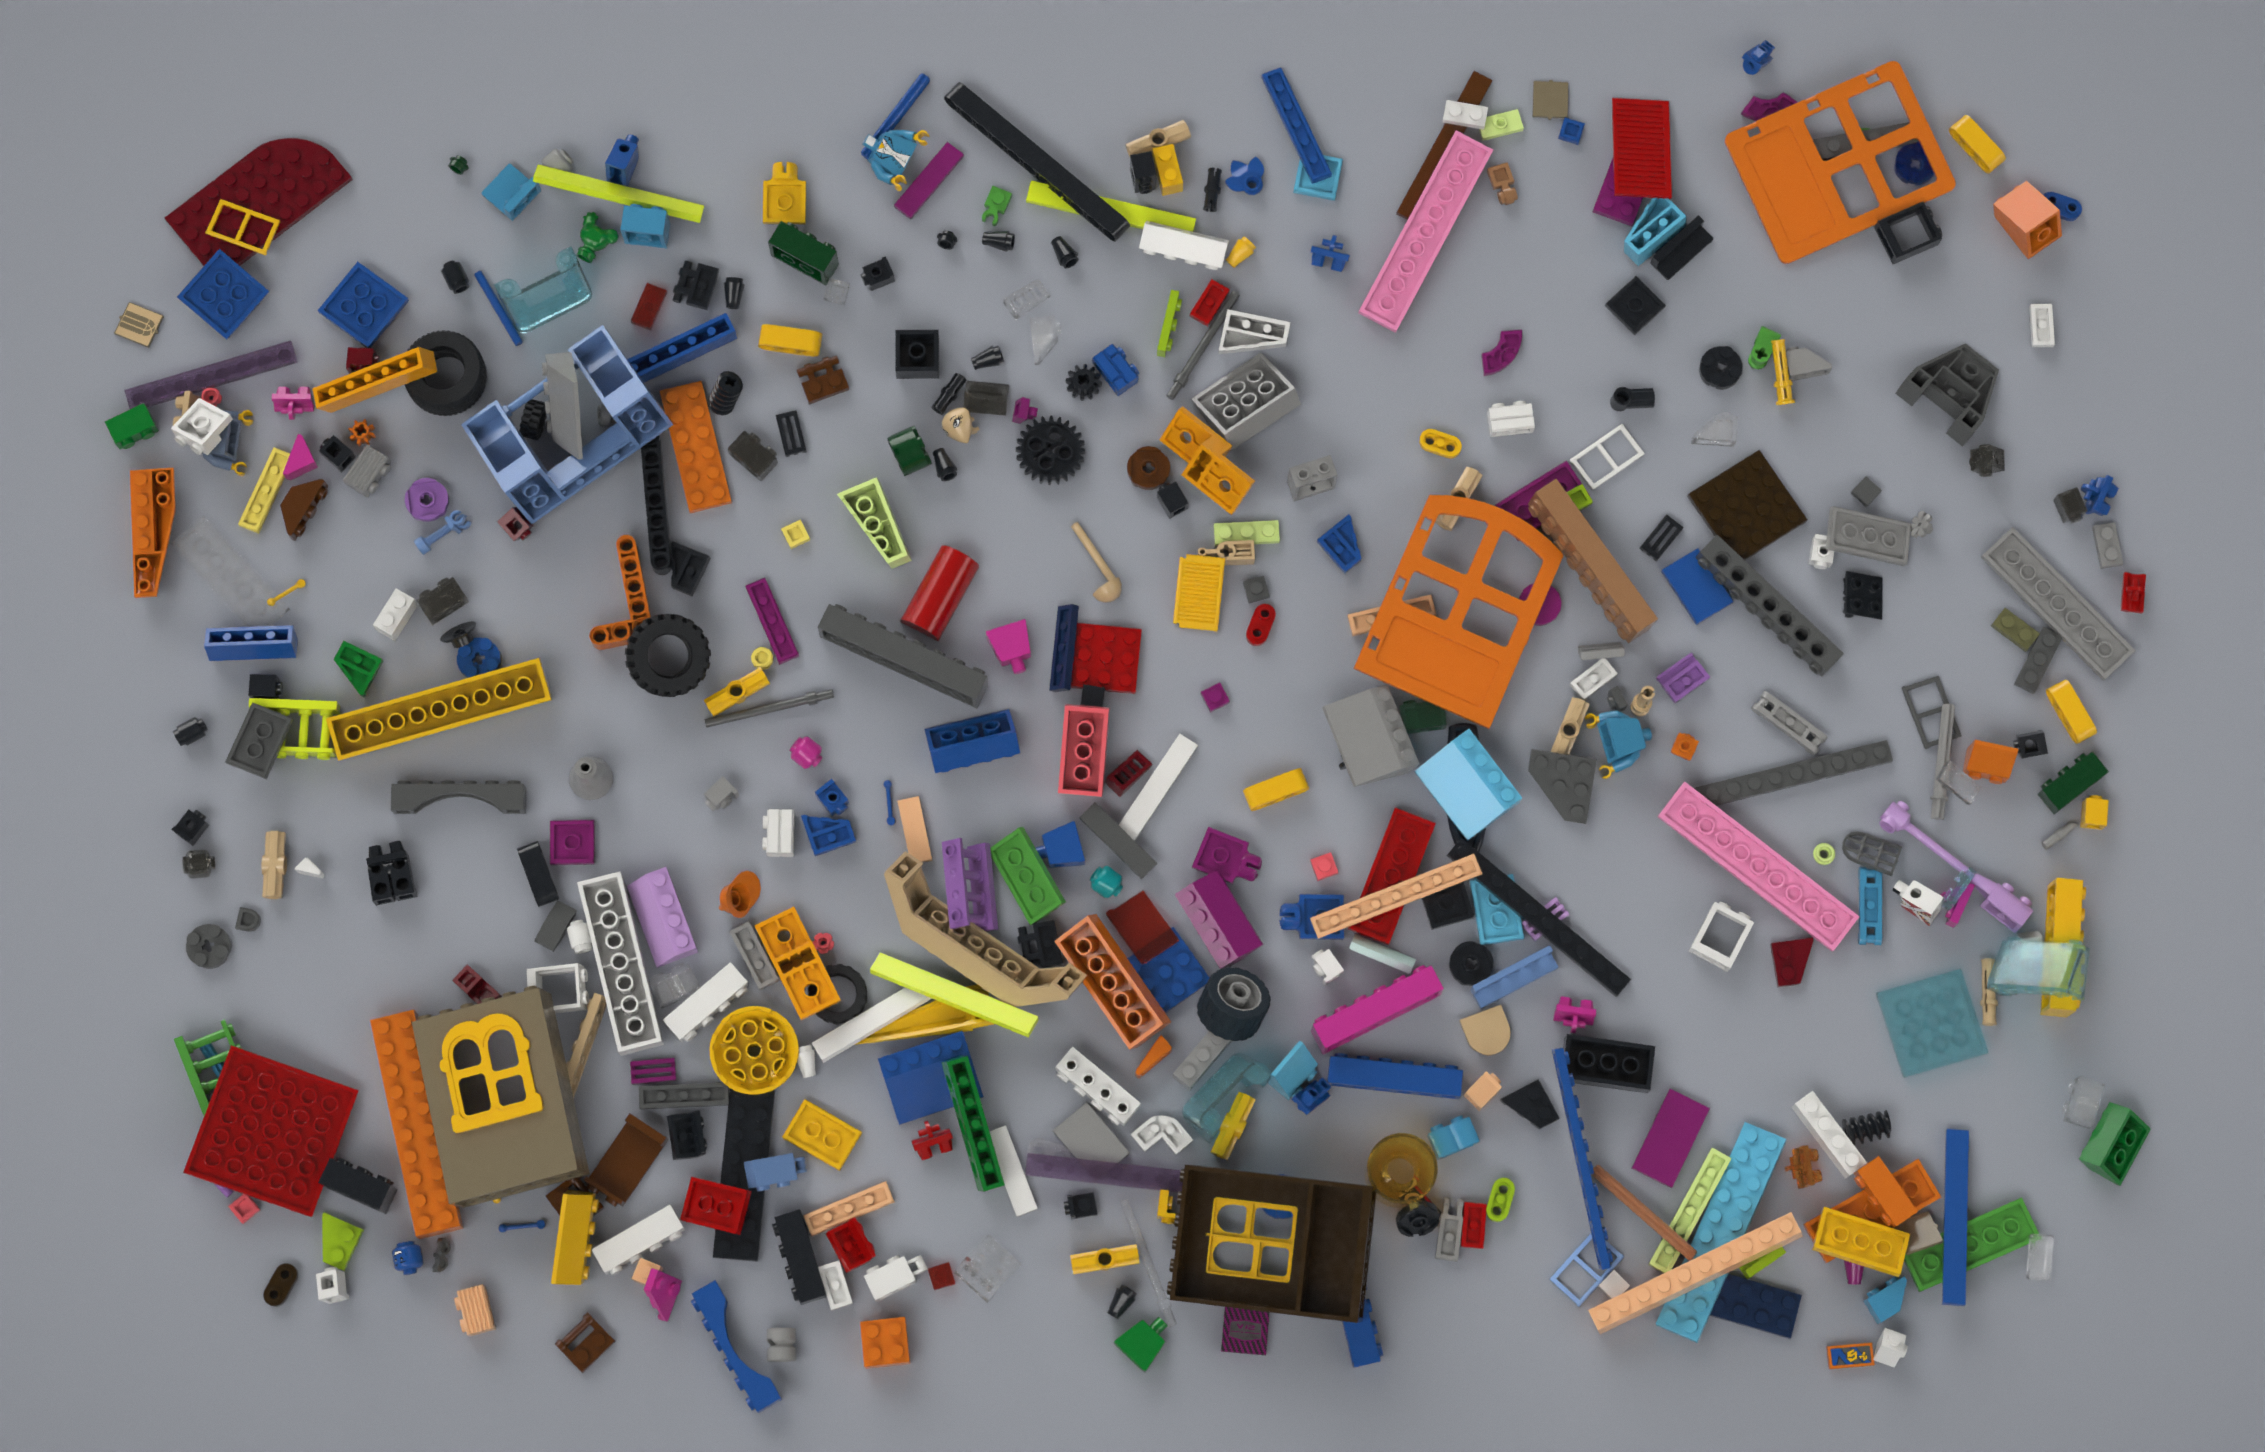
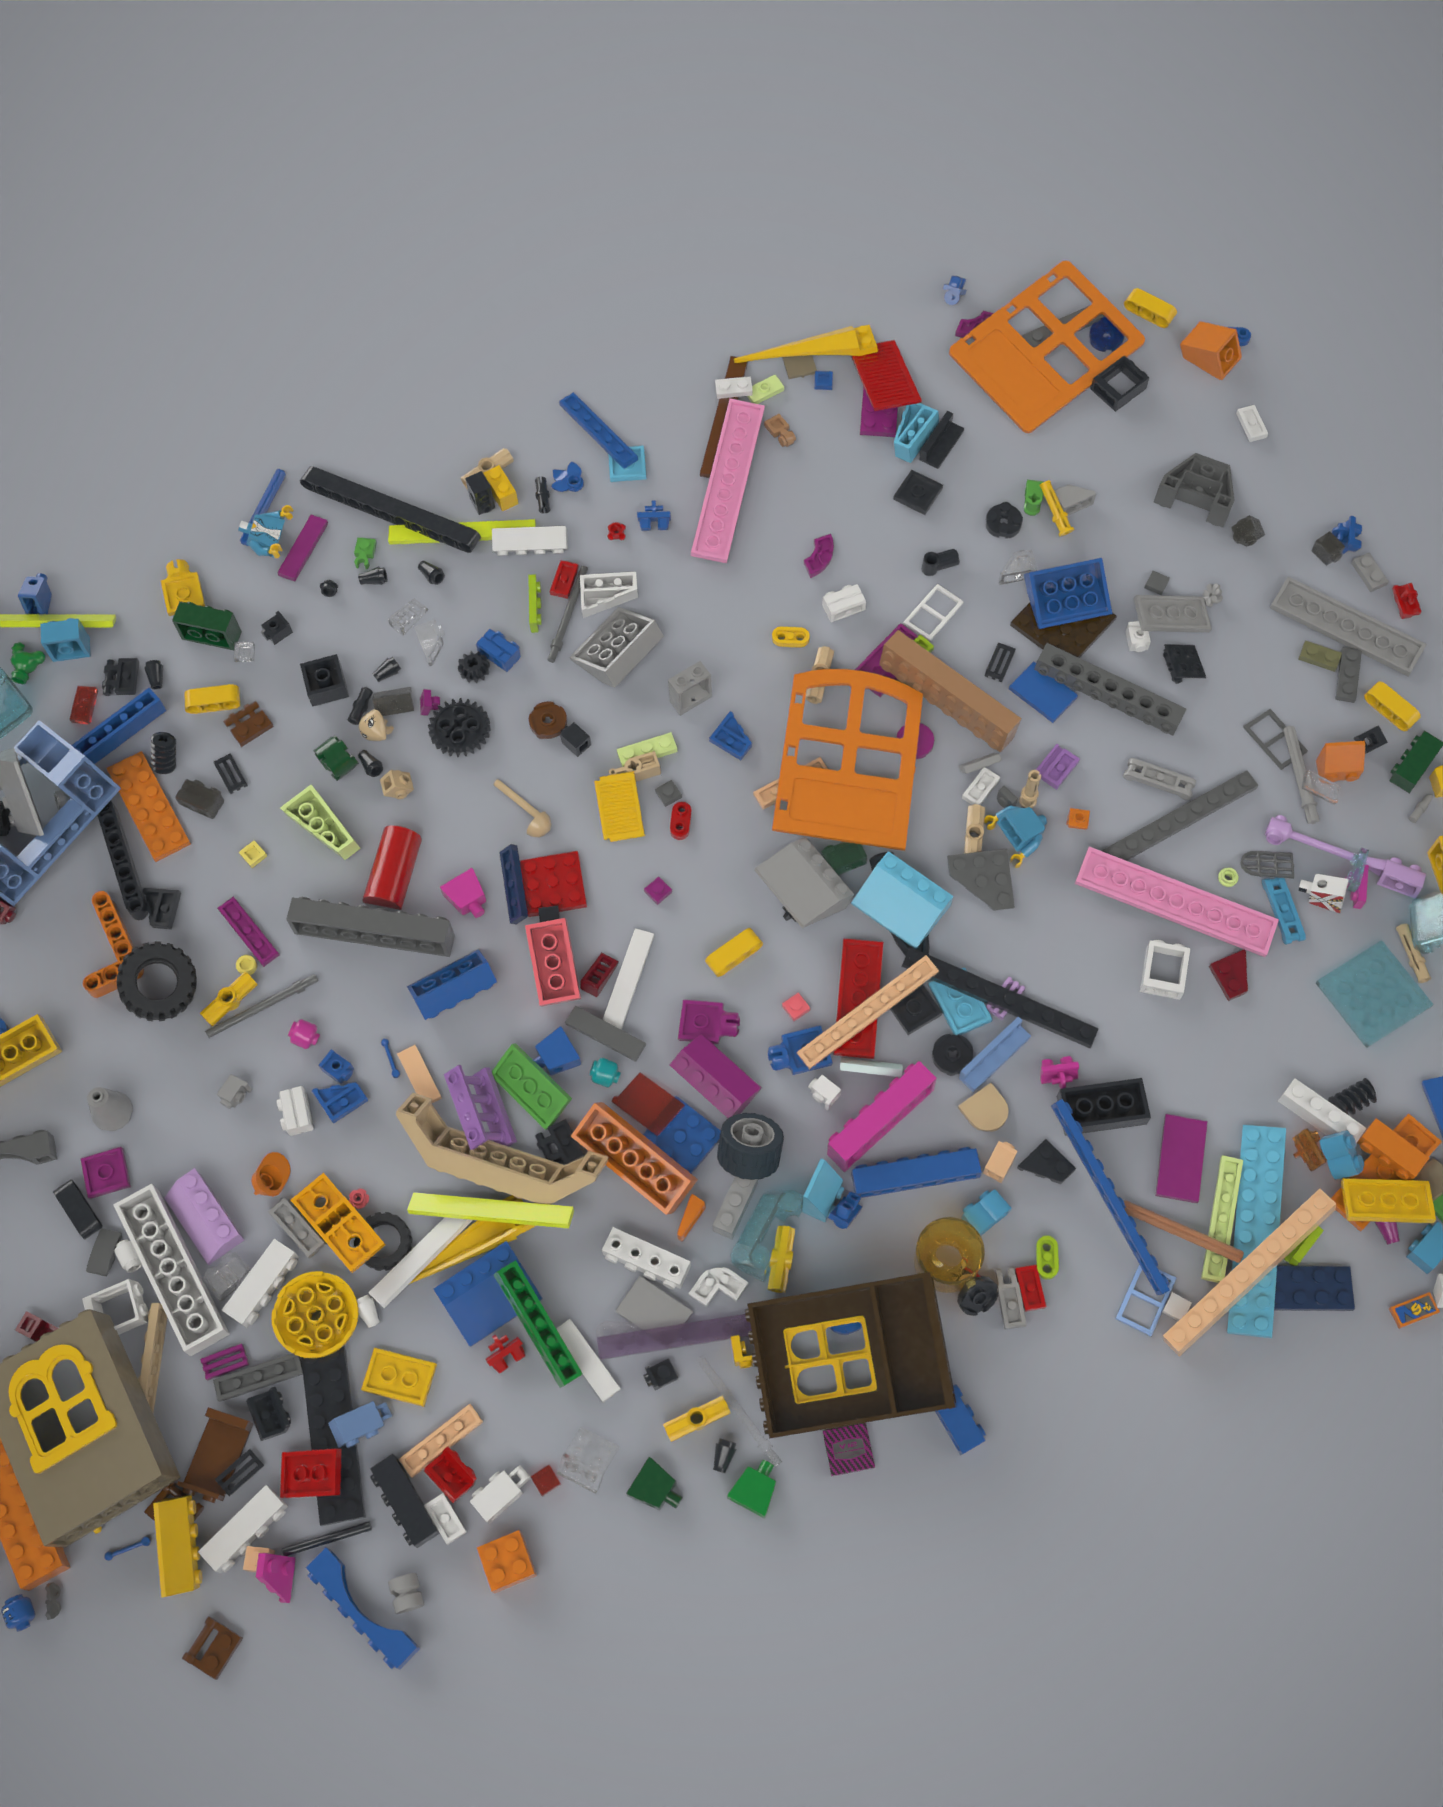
camera: 10 degrees left, 10 degrees down
(475, 1310) = (96, 1647): light nougat brick -> none
(662, 1175) = (260, 1465): none -> black tile
(716, 1271) = (326, 1539): none -> black bar
(967, 499) = (396, 784): none -> tan brick
(1045, 1312) = (654, 1486): none -> dark green torso
(1207, 460) = (596, 697): light orange bracket -> none
(1240, 251) = (580, 532): yellow cone -> none
(1283, 253) = (616, 527): none -> red plate
(1604, 89) = (843, 341): none -> yellow plate
(1760, 480) = (1068, 593): none -> blue slope
(1831, 1182) = (1341, 1155): none -> dark azure brick

